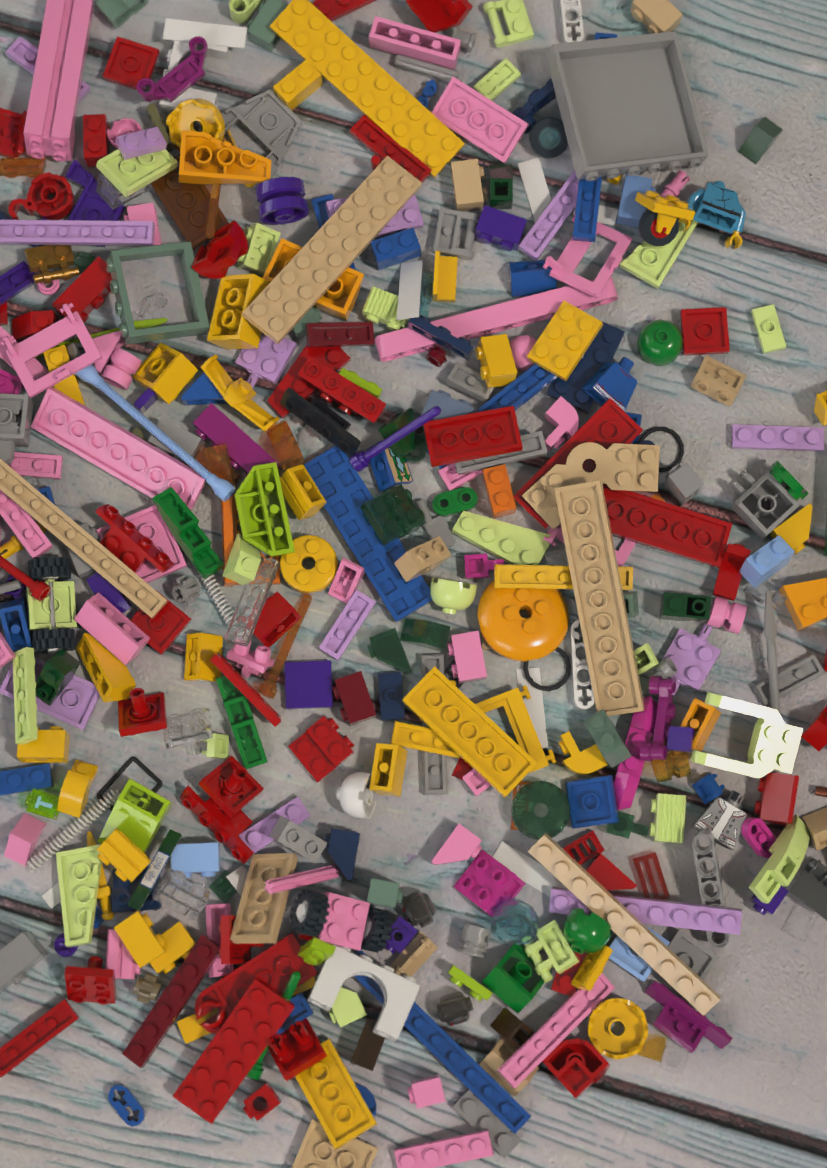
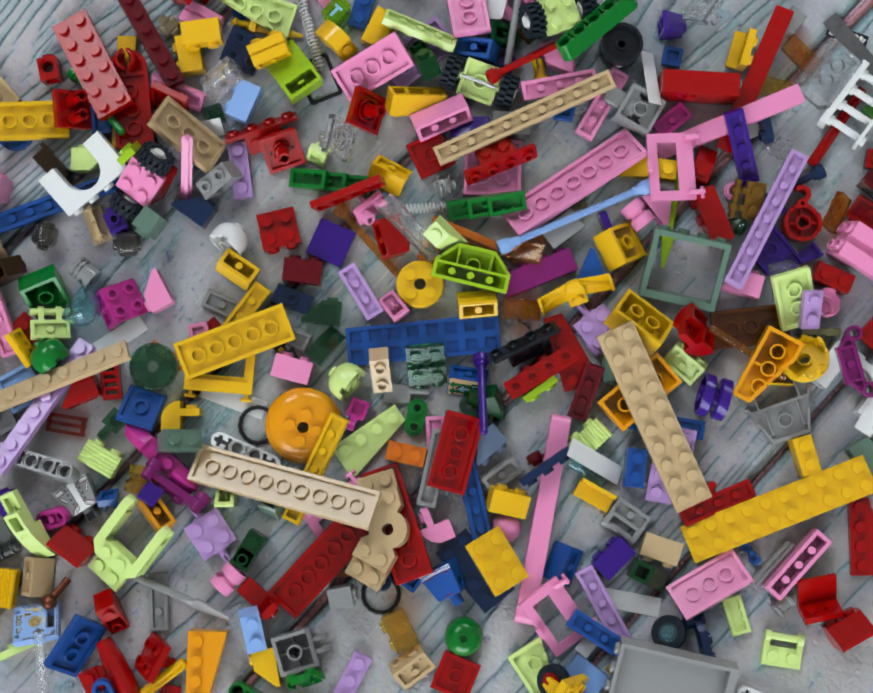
camera: 120 degrees right, 5 degrees up
(89, 729) = (373, 65): none -> bright pink plate
(154, 870) = (247, 67): sticker -> none
(460, 978) = (64, 251): lime plate -> none
(667, 667) = (209, 513): light grey hinge -> none
(687, 410) = (399, 630): none -> clear yellow brick

